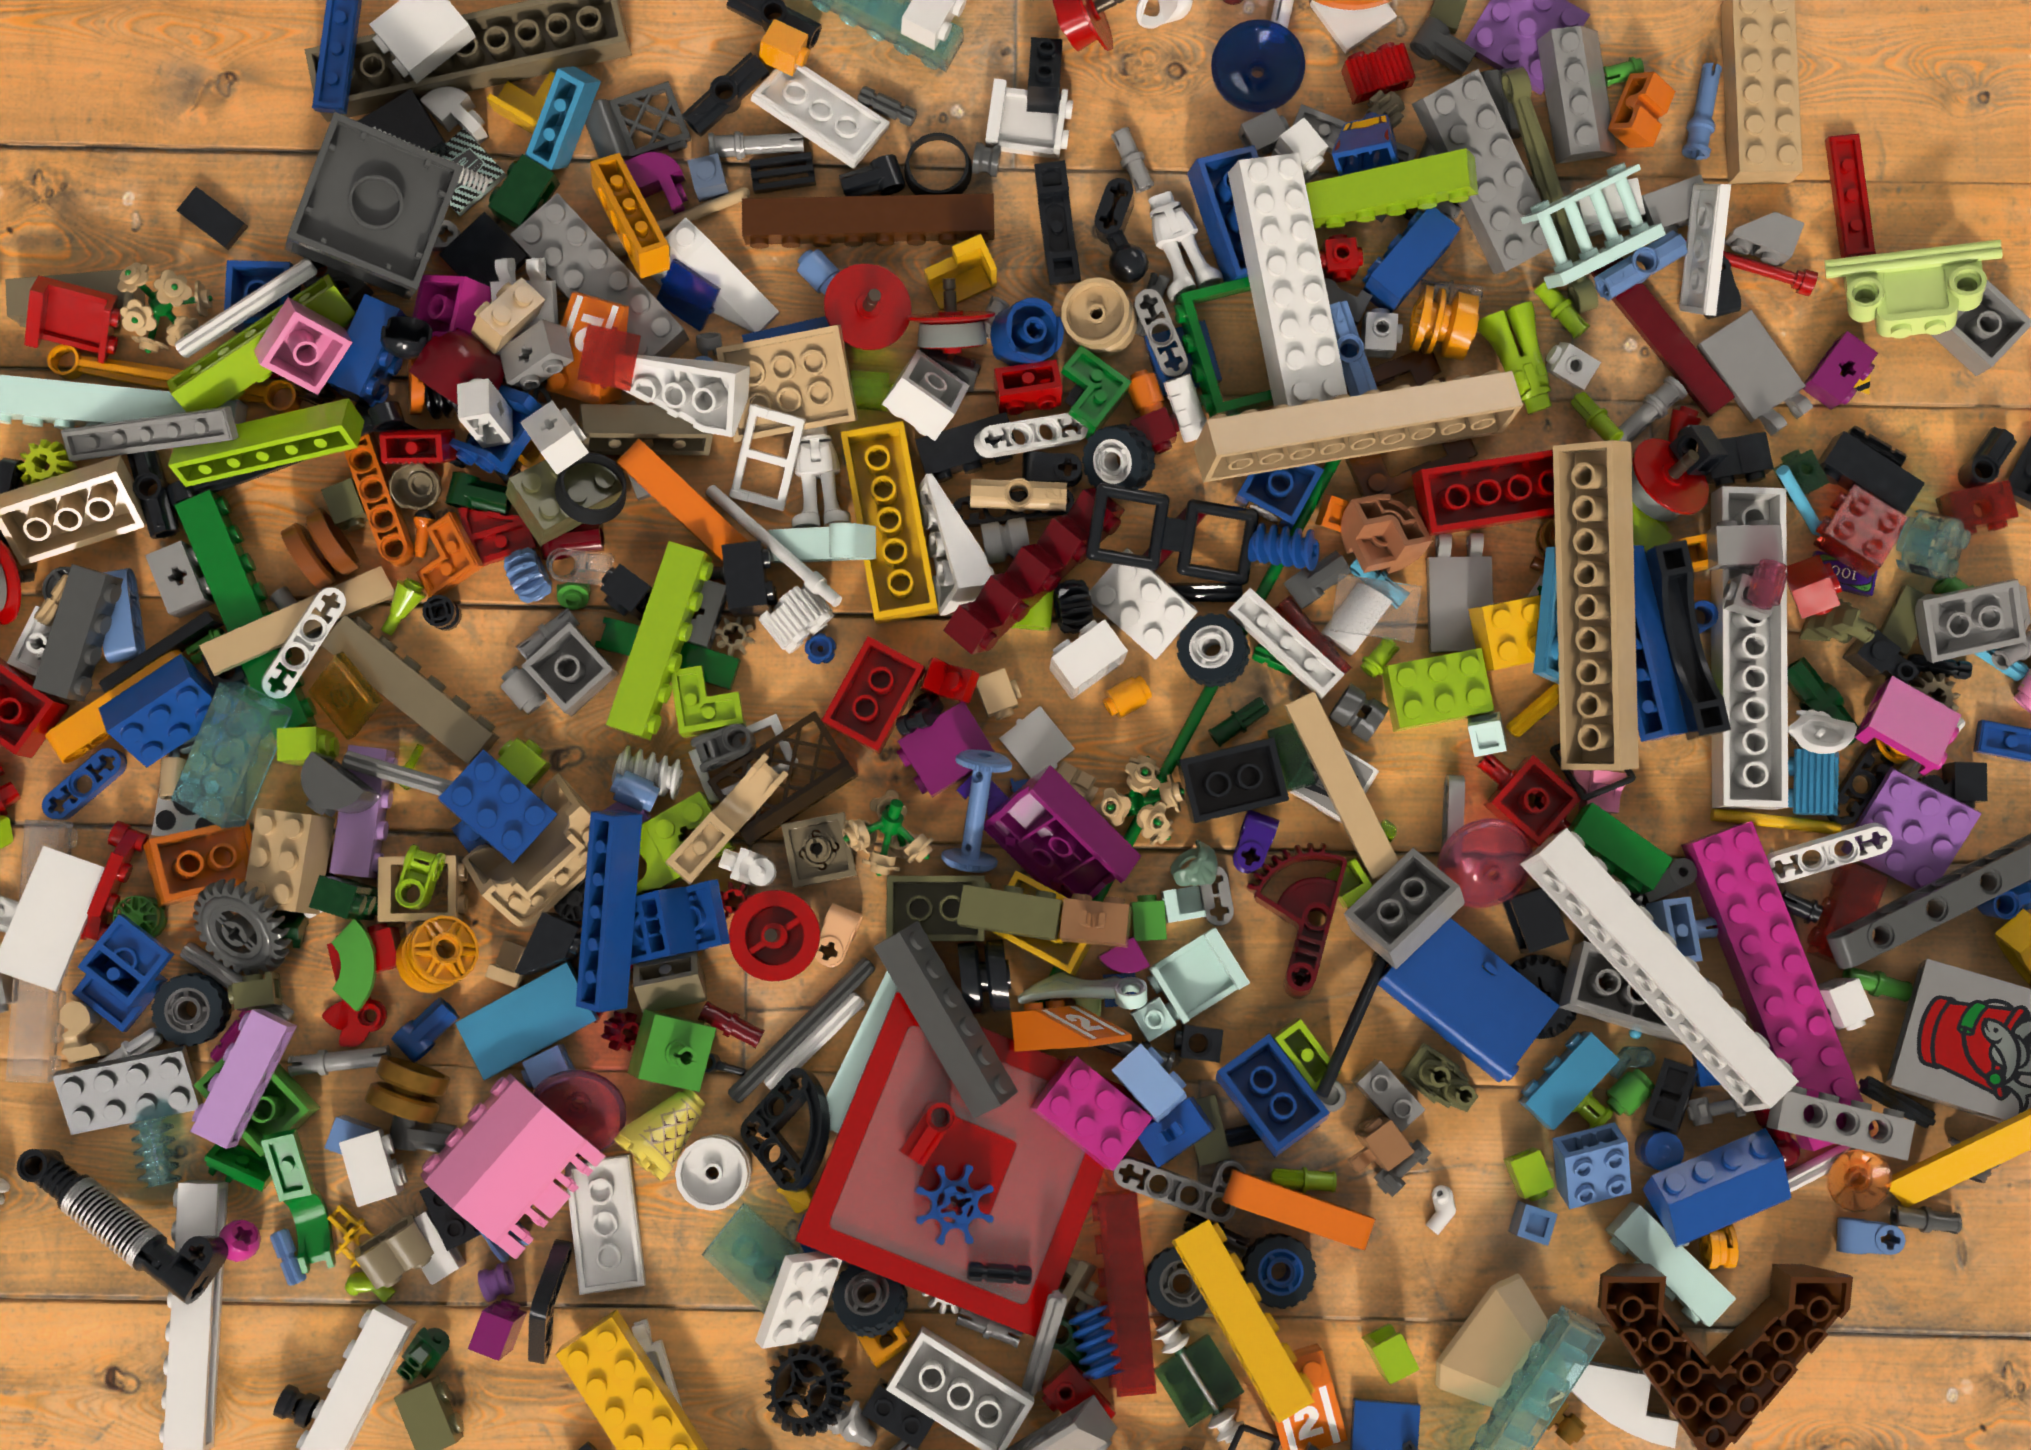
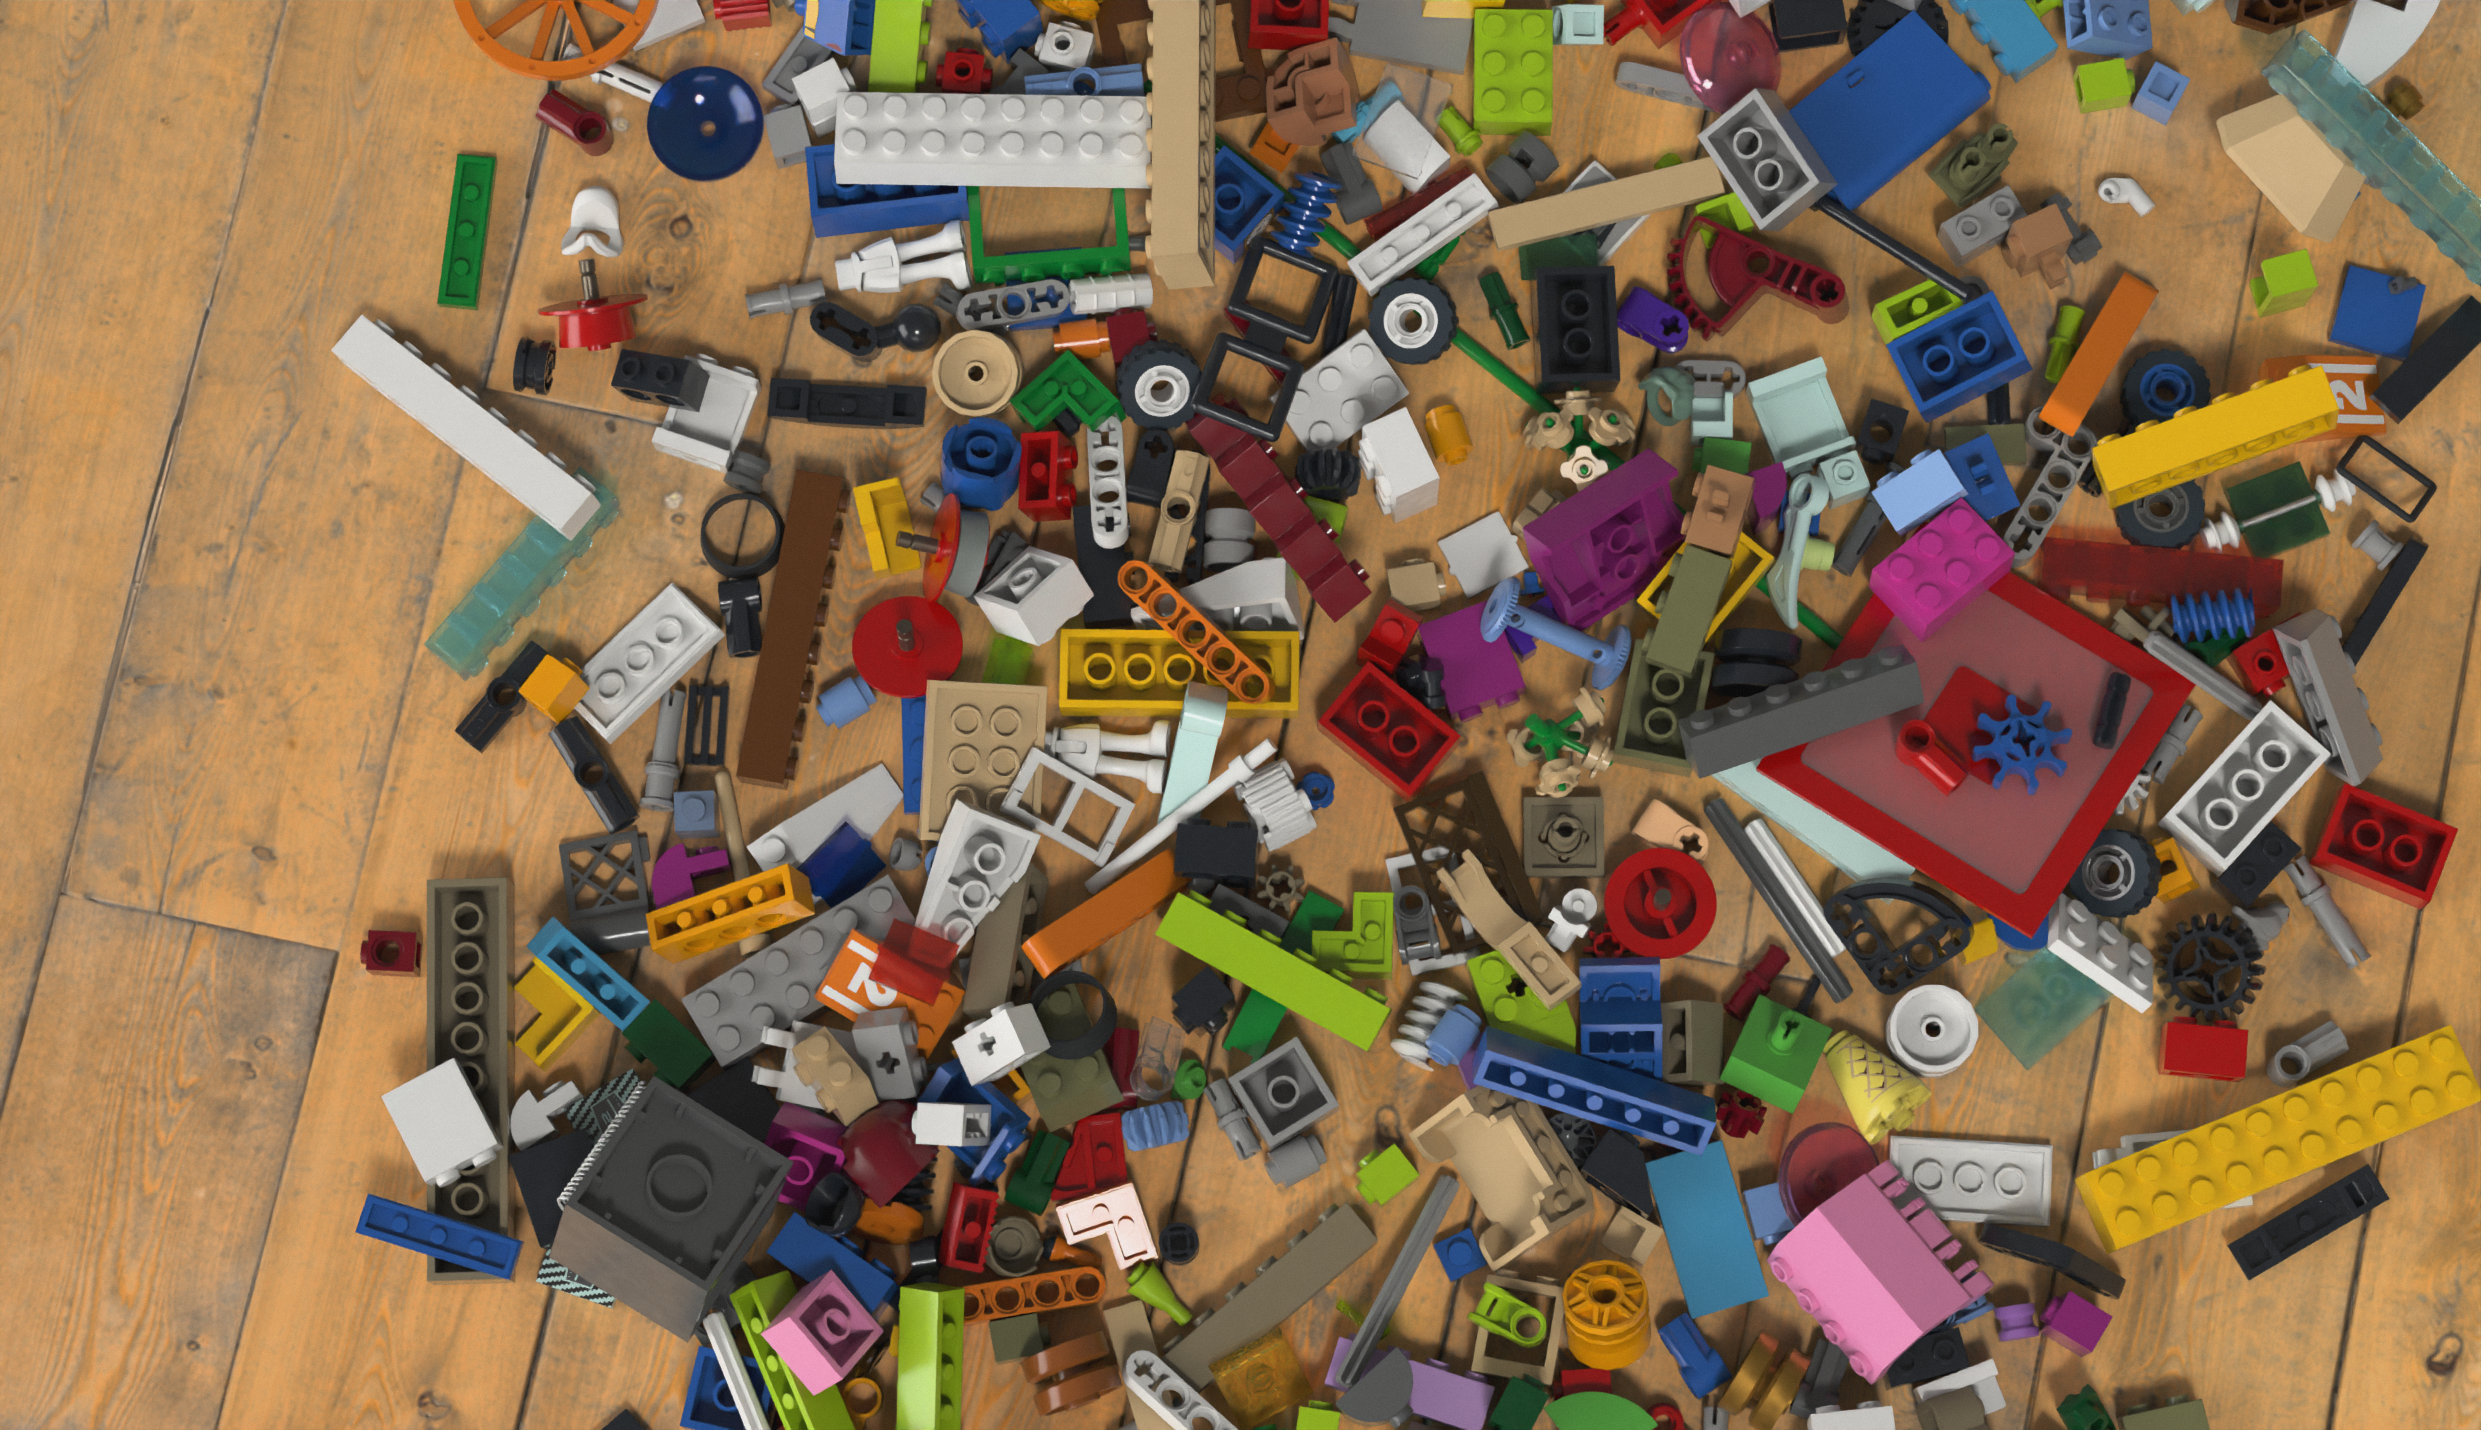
camera: 70 degrees left, 5 degrees down
(497, 806) = (1440, 1207): blue brick -> none
(740, 1395) = (2203, 1050): none -> red brick
(887, 106) = (650, 581): dark grey axle -> none
(916, 509) = (1181, 620): none -> orange beam
(1062, 1027) = (1834, 580): orange slope -> none

